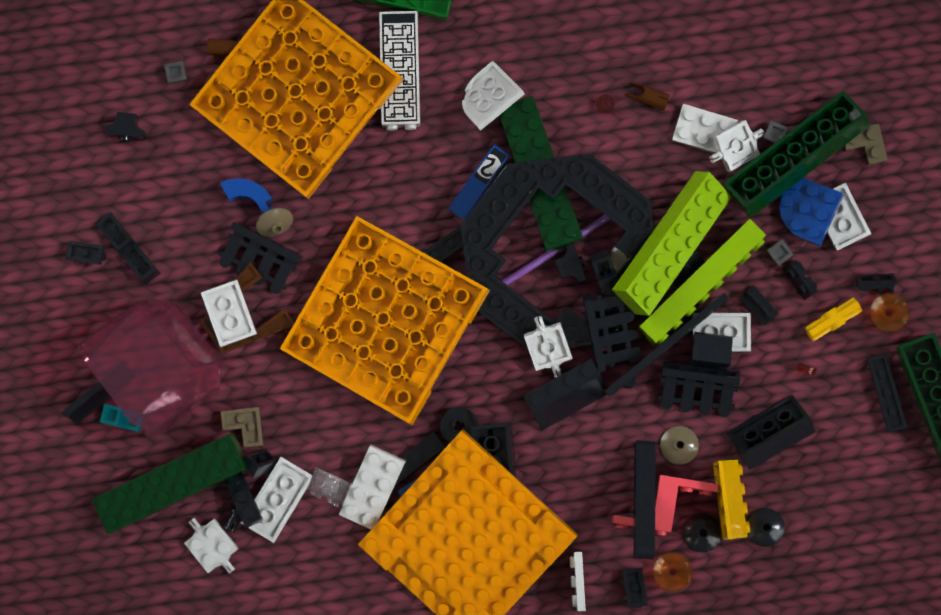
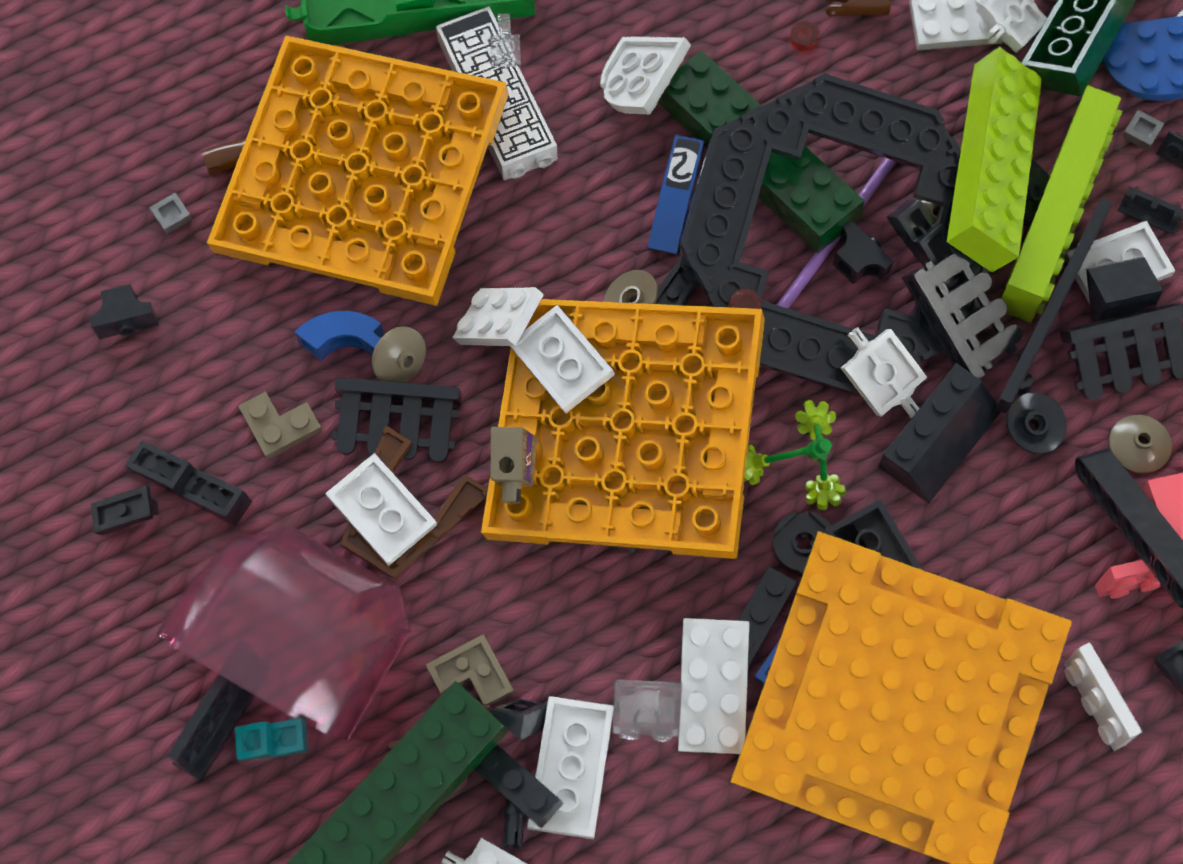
camera: 25 degrees left, 15 degrees down
(189, 238) = (278, 432): none -> dark tan plate
(311, 318) = (512, 449): none -> dark tan torso
(340, 222) = (497, 316): none -> white plate
(363, 267) = (562, 359): none -> white plate
(414, 45) = (505, 47): none -> clear plate
(421, 232) = (633, 287): none -> dark tan dish
(483, 275) = (745, 299): none -> clear red tile
(484, 400) = (815, 421): none -> lime plant
(629, 417) = (1046, 416): none -> black dish

